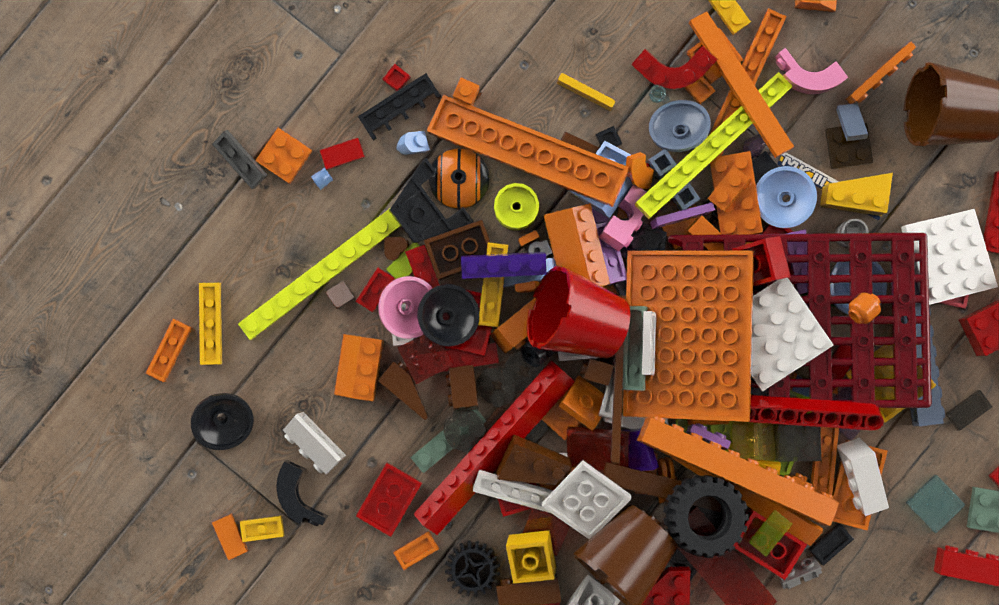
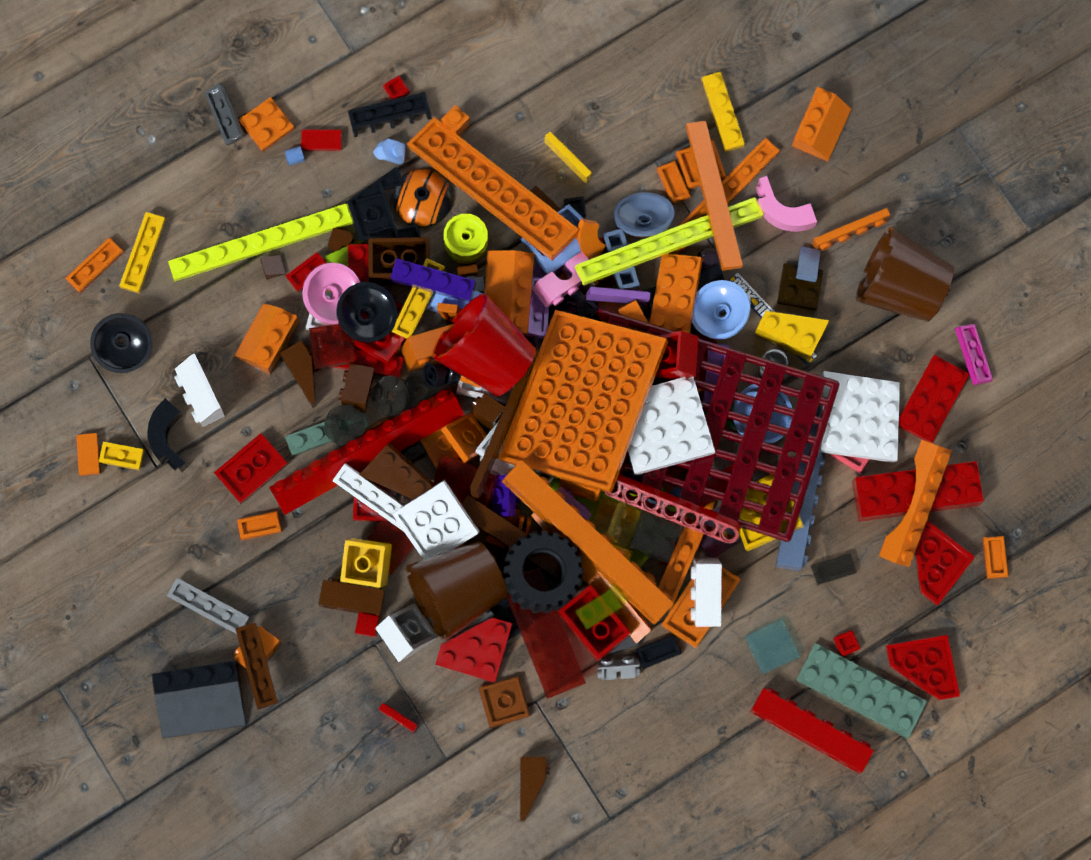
camera: 15 degrees right, 10 degrees down
(465, 573) = (297, 559): black gear -> none
(633, 351) = (529, 397): sand green plate -> none
(649, 335) = (543, 395): white tile -> none
(658, 91) = (635, 180): clear light blue hinge -> none
(674, 77) = (657, 170): red plate -> none
(729, 188) = (669, 284): orange plate -> none
(864, 308) = (754, 426): orange head -> none

